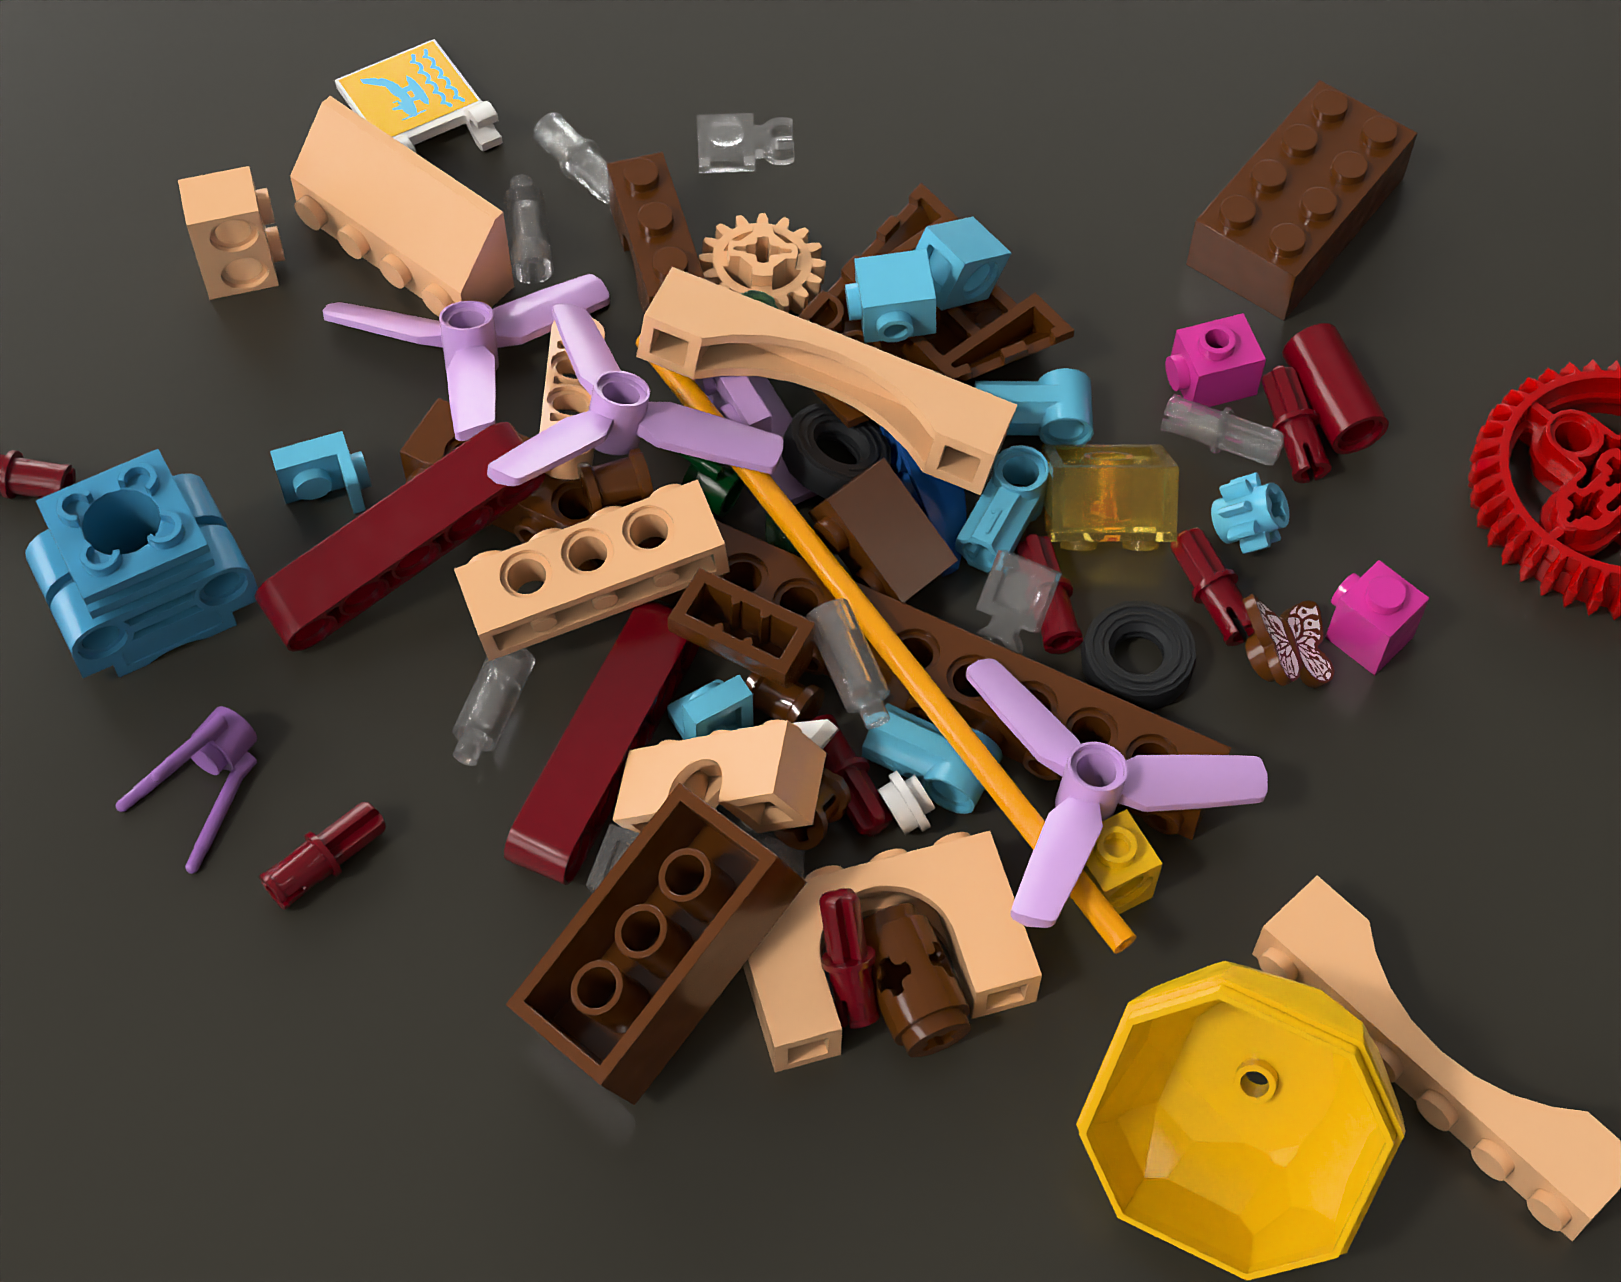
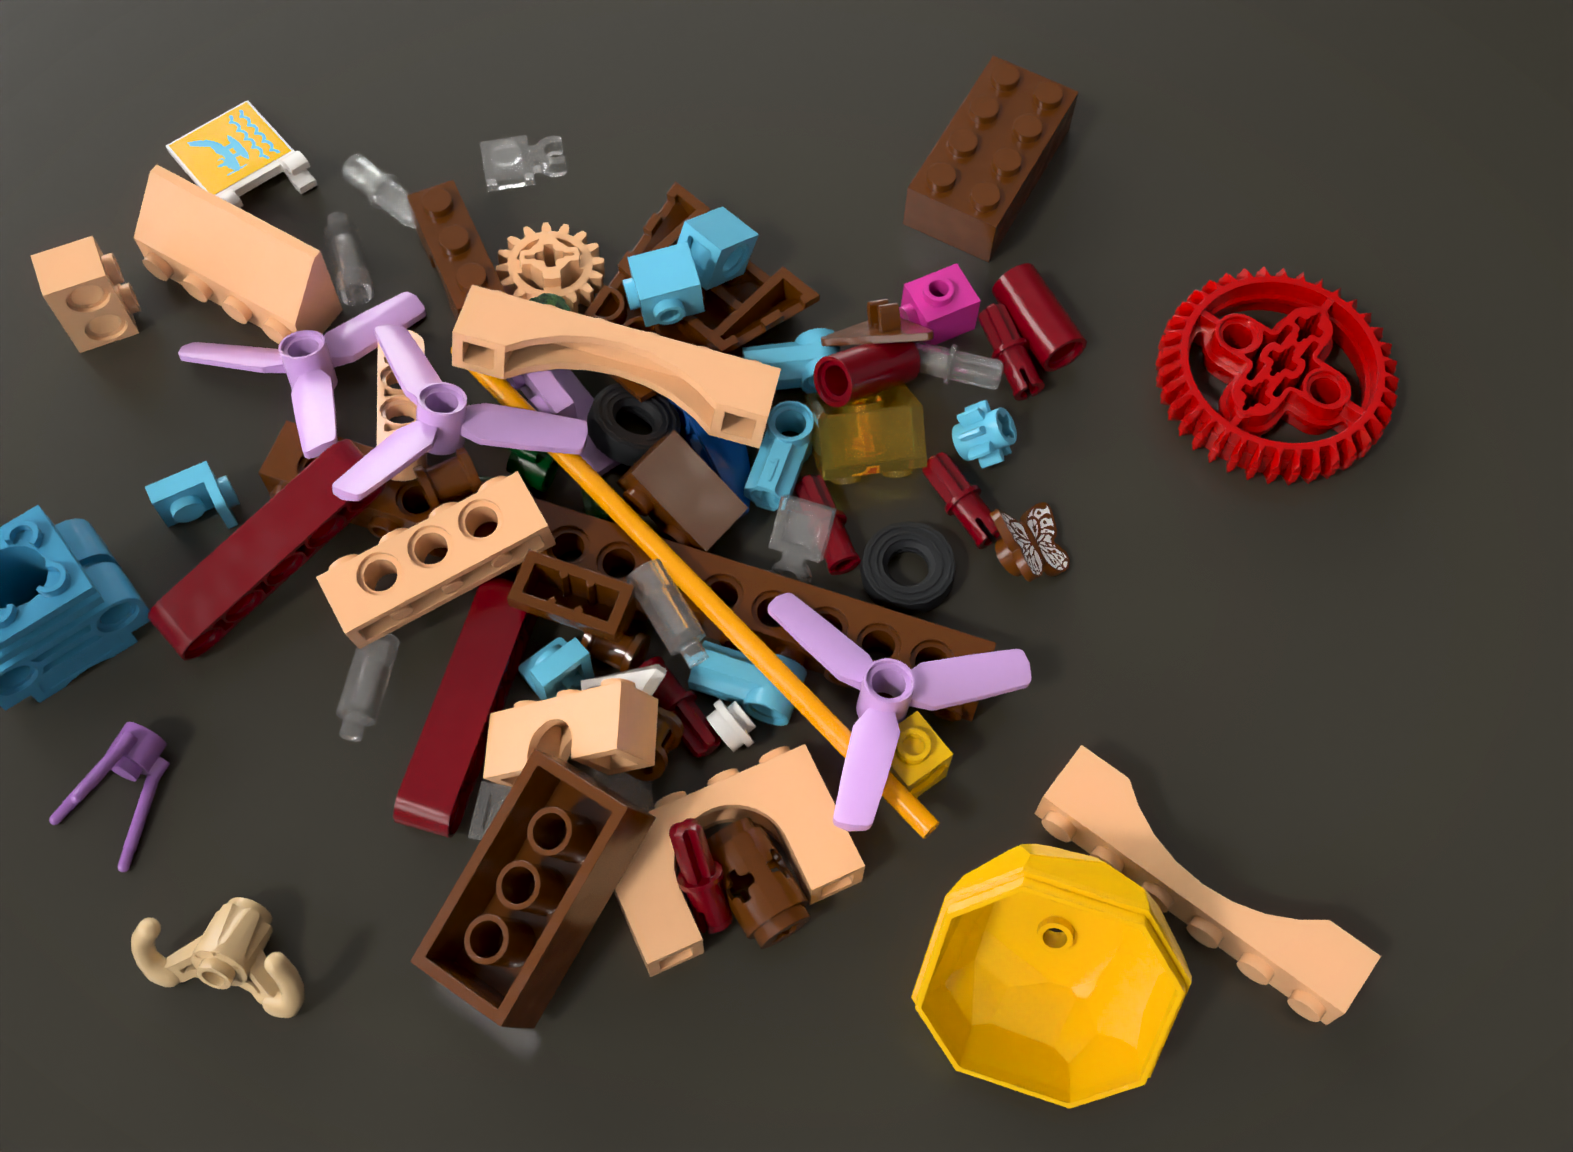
camera: 10 degrees left, 5 degrees up
(299, 976) = (226, 957): none -> tan piece
(322, 854) = (236, 840): dark red axle -> none
(1119, 421) = (865, 371): none -> dark red pin
(1144, 374) = (881, 327): none -> reddish brown piece
(1375, 616) = (1097, 509): dark pink brick -> none

